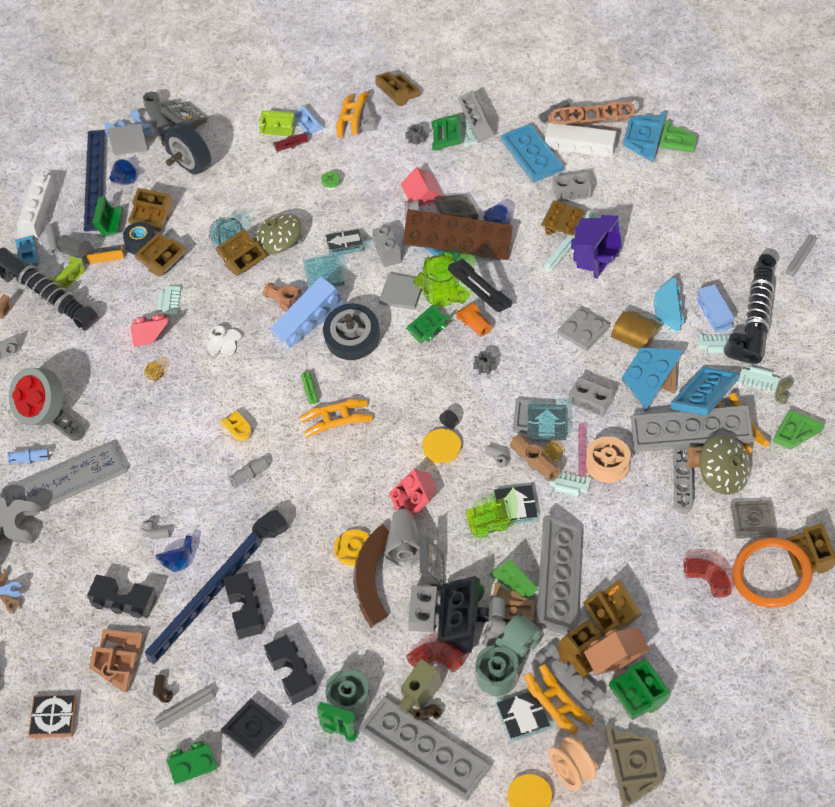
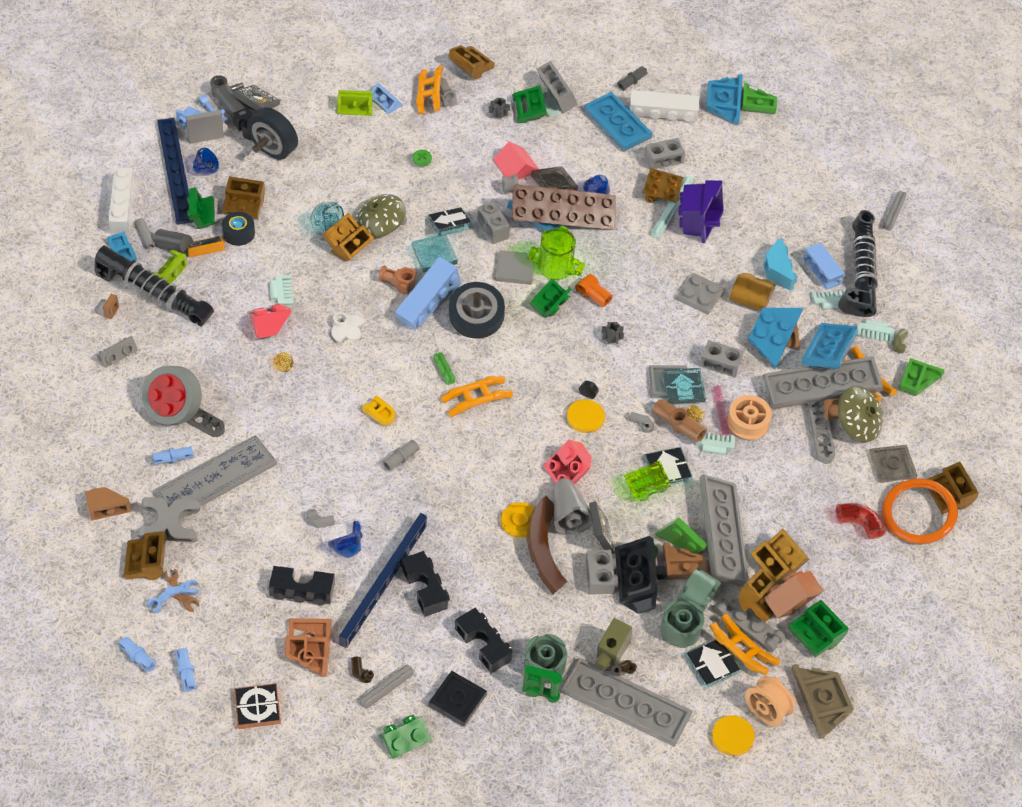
camera: 15 degrees left, 0 degrees up
(160, 254) = (264, 243): pearl gold brick -> none
(270, 525) = (435, 504): black rock -> none
(290, 142) = (372, 121): dark red pin -> none
(437, 652) = (622, 611): clear red cylinder -> none
(463, 270) = (583, 241): black container -> none
(496, 622) = (675, 581): light grey bar -> none
(599, 111) = (683, 79): nougat piece -> none

